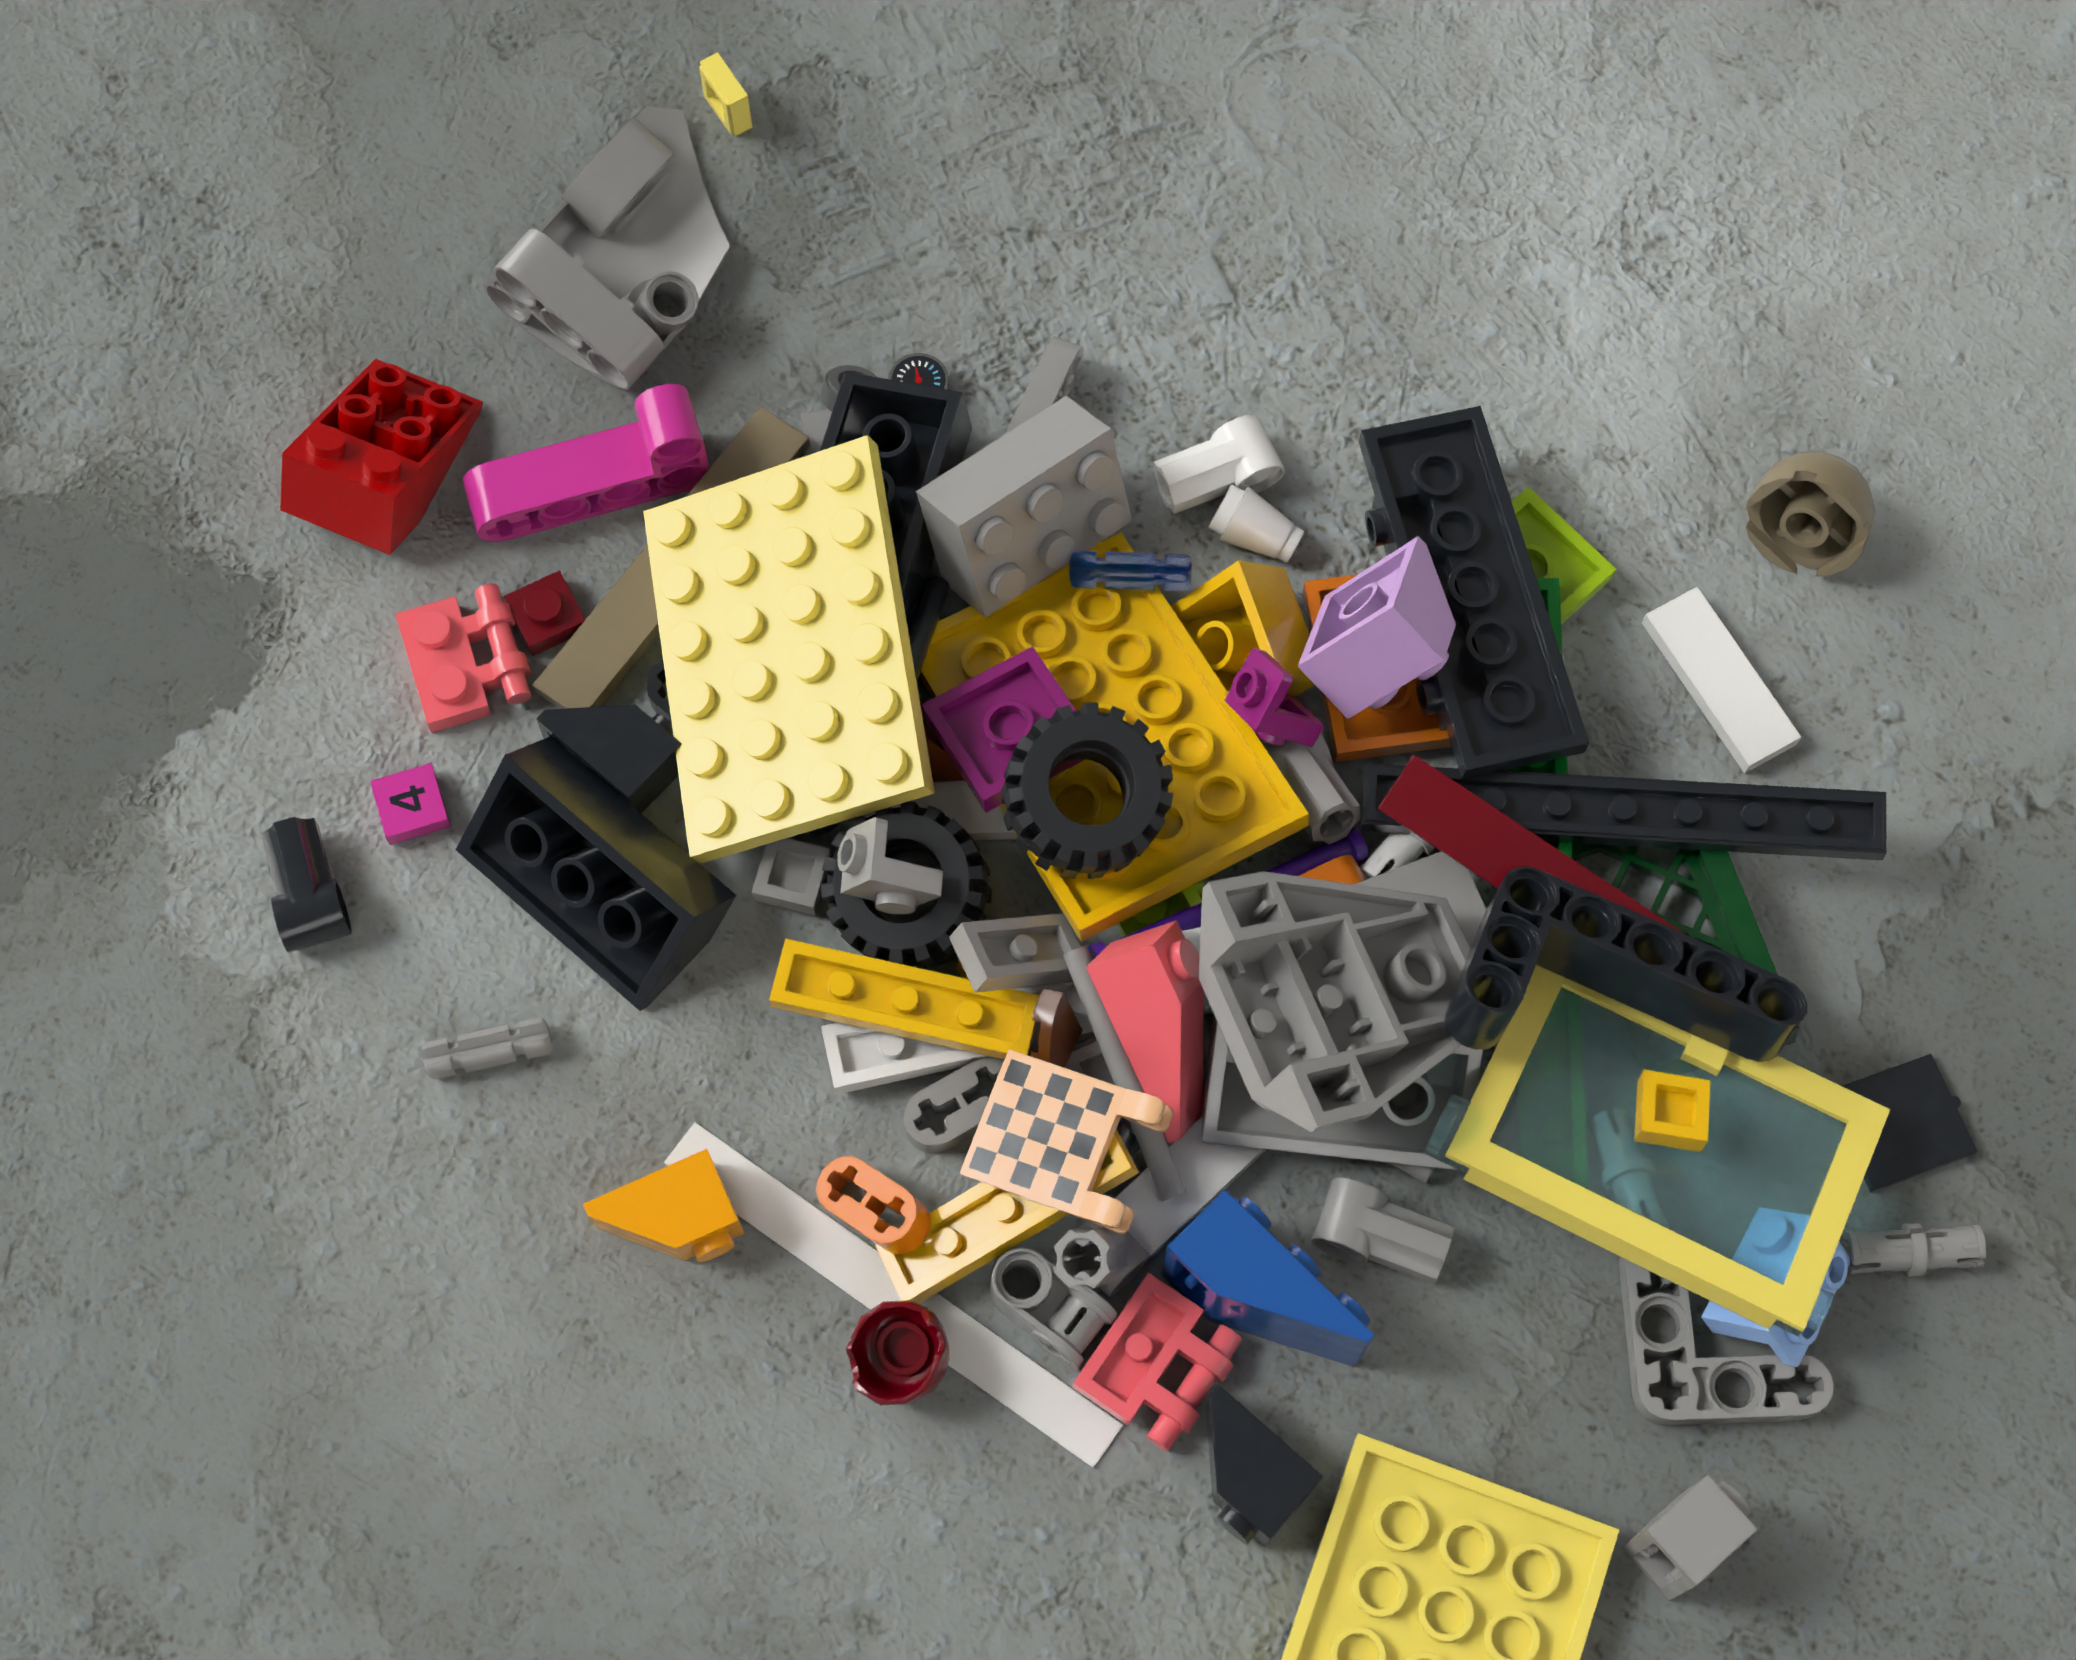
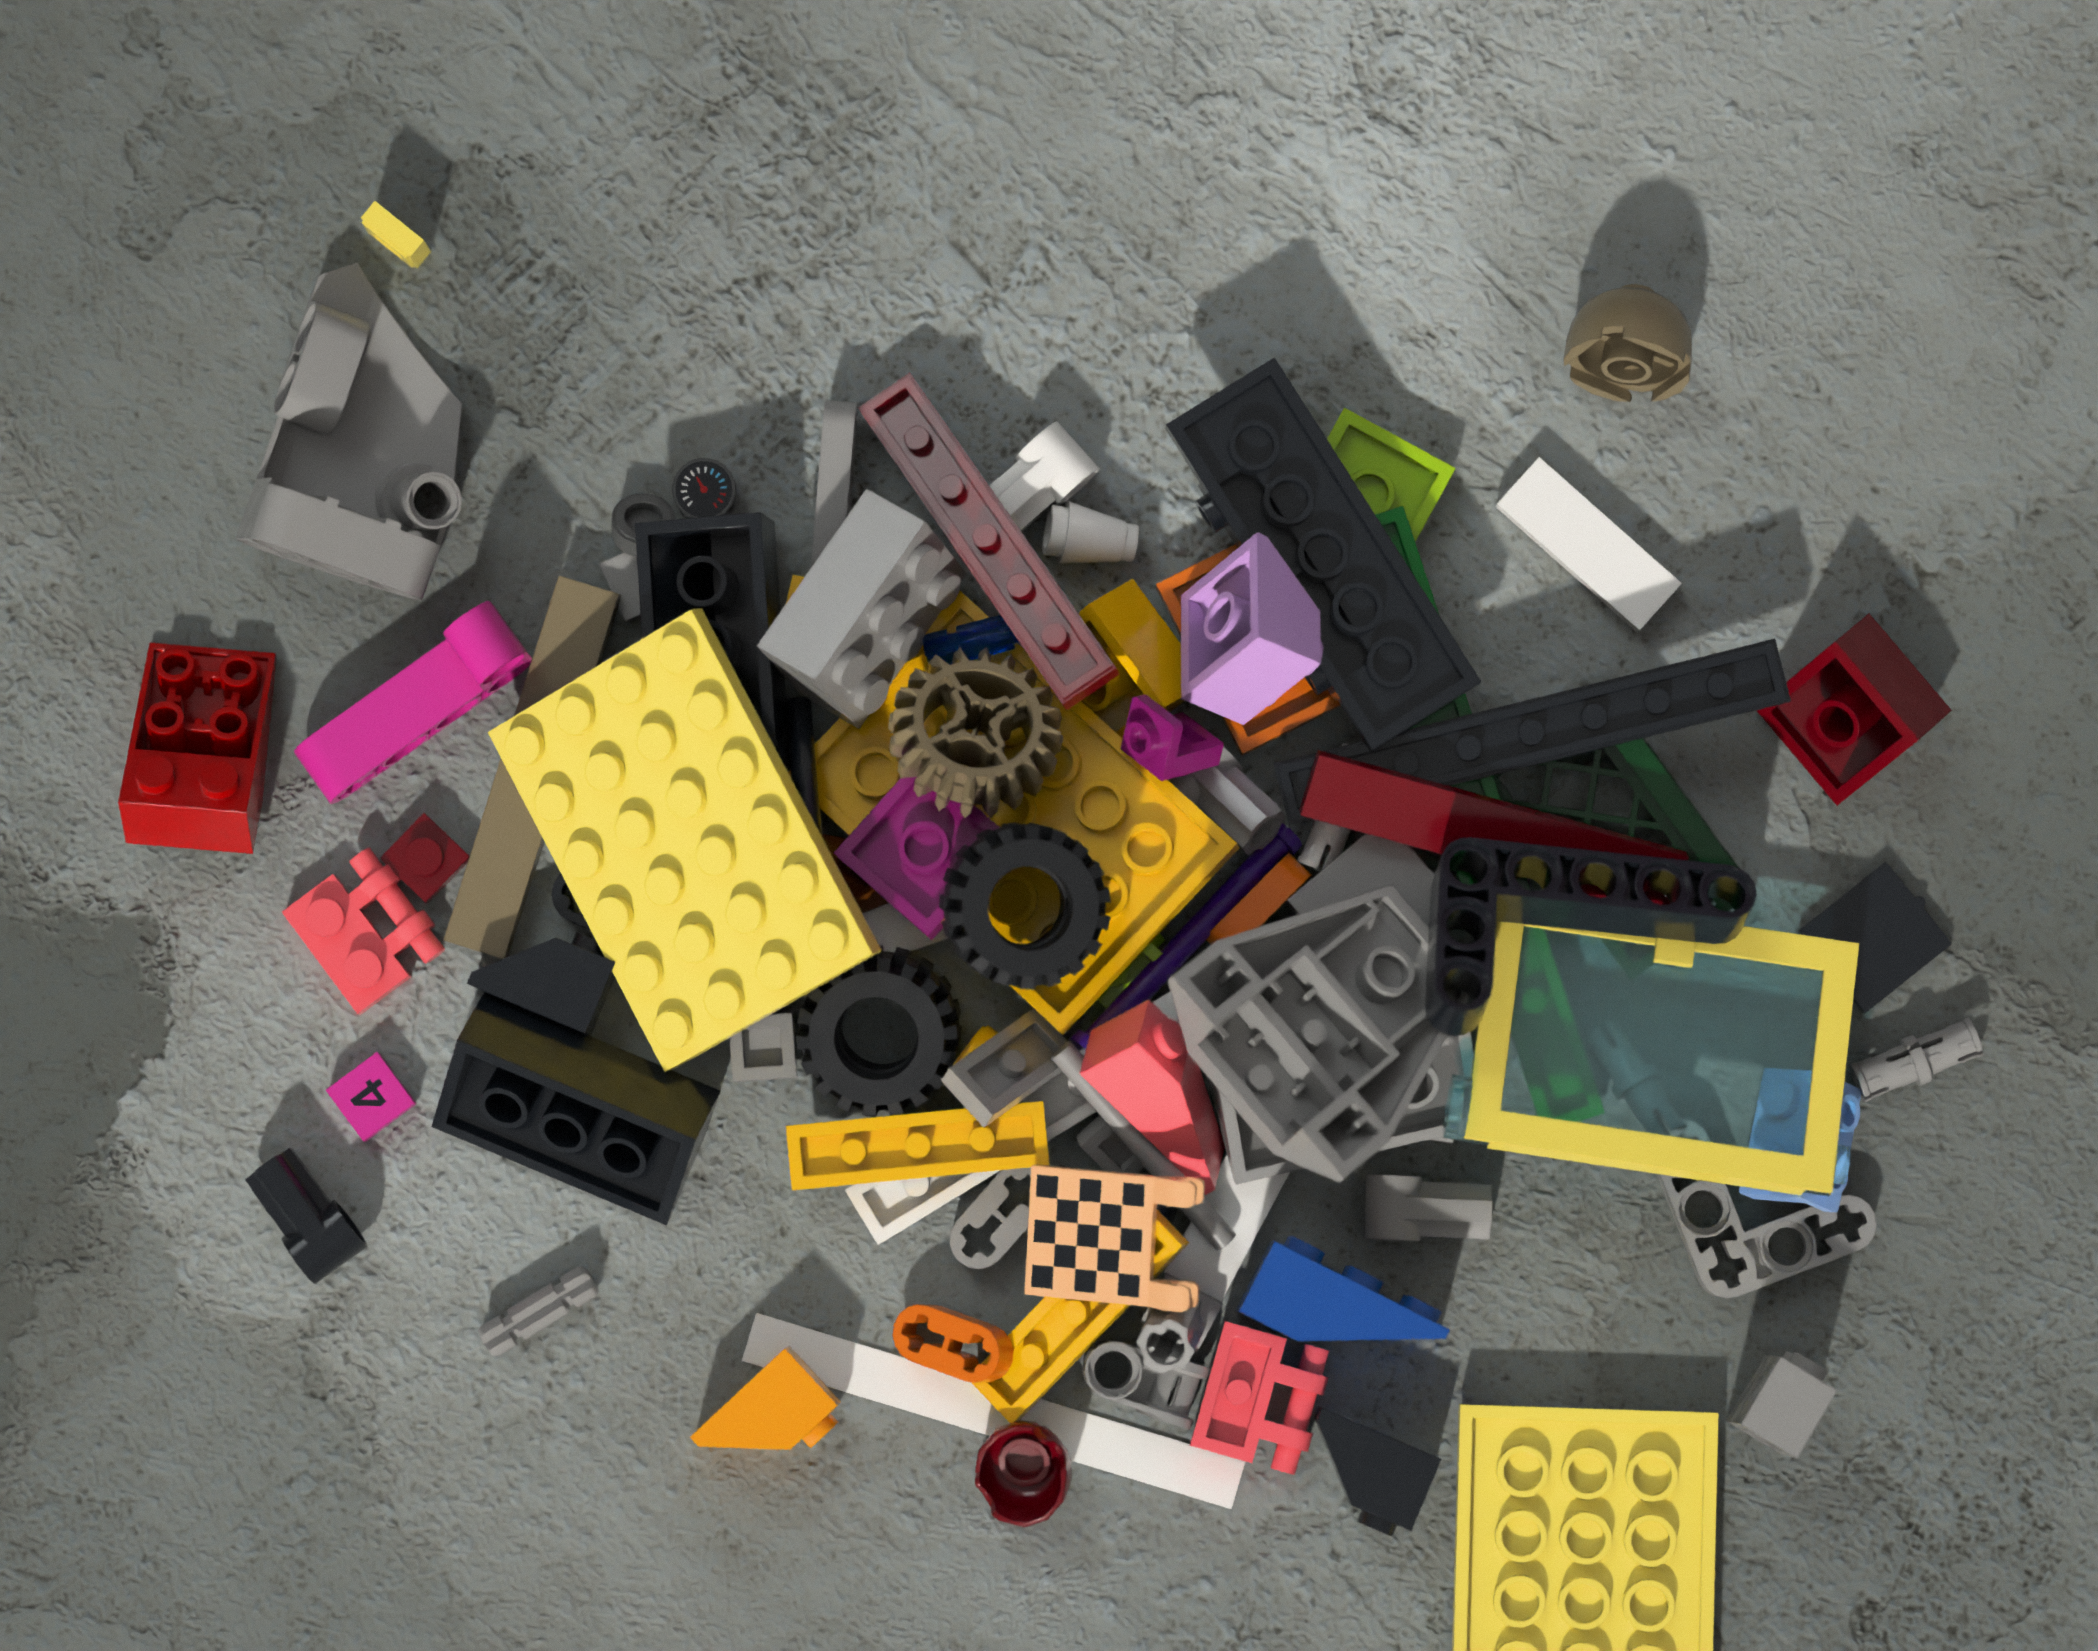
camera: 15 degrees left, 15 degrees up
(888, 881) = (839, 1044): light grey bracket -> none
(1058, 1028) = (1070, 1131): reddish brown tile -> none
(1092, 635) = (969, 765): none -> dark tan gear
(1164, 491) = (988, 541): none -> tile
(1672, 1110) = (1658, 1024): yellow plate -> none
(1937, 899) = (1855, 709): none -> dark red slope

